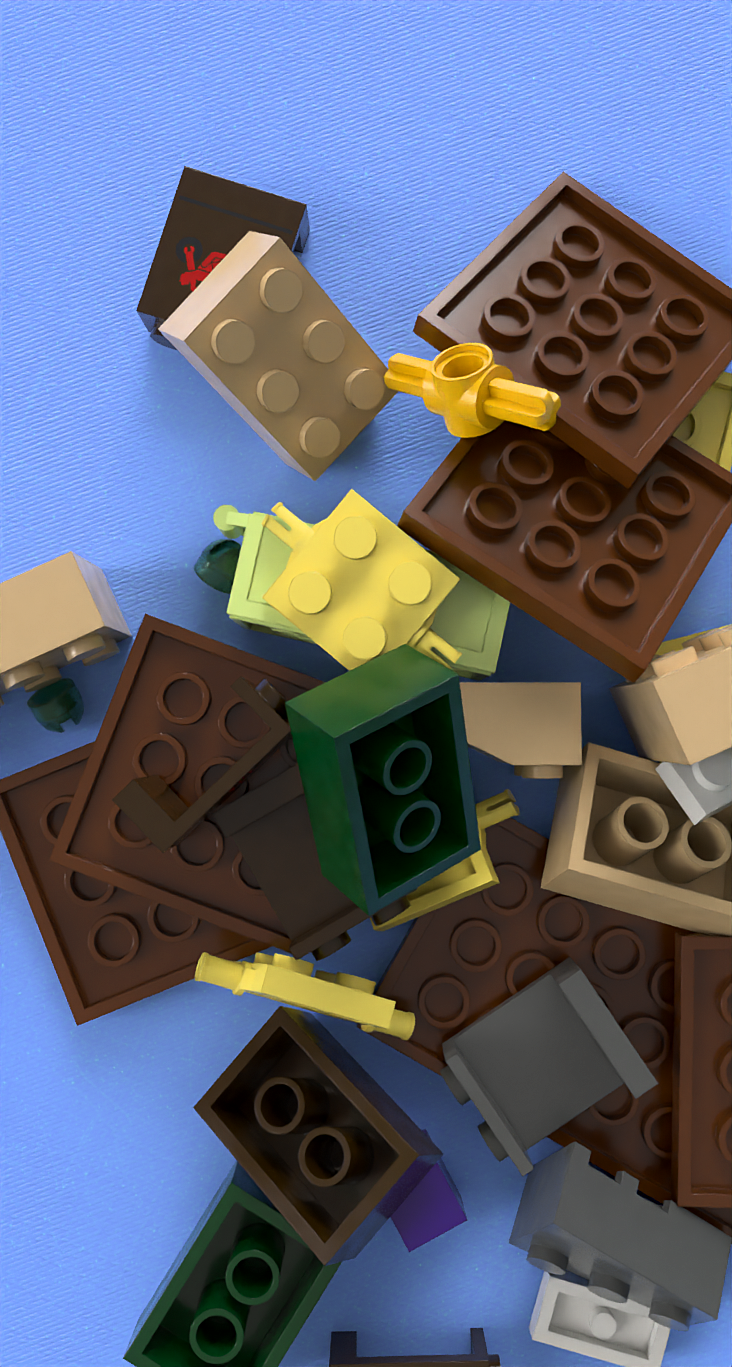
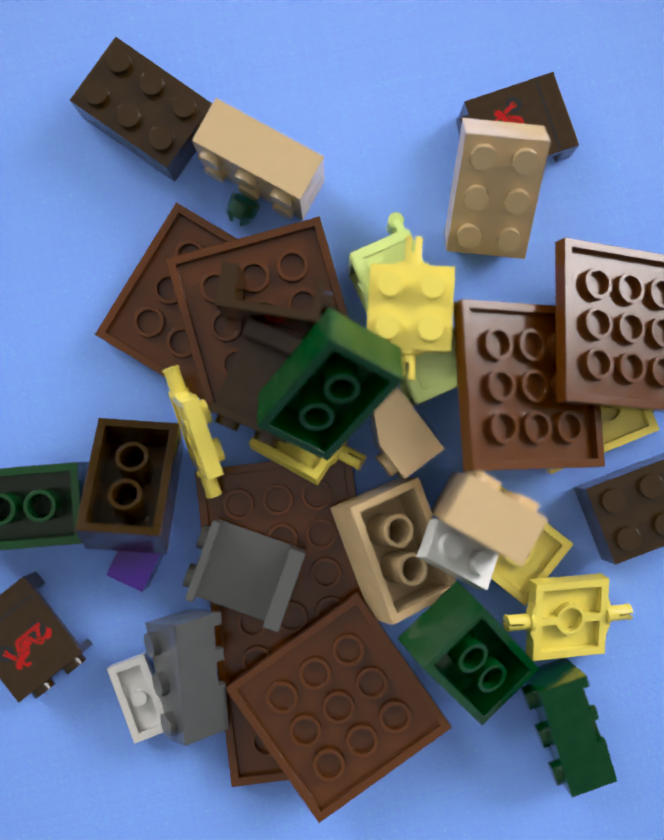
camera: 45 degrees right, 0 degrees up
(218, 564) = (369, 233): clear green hinge -> none
(472, 390) = (546, 290): yellow axle -> none

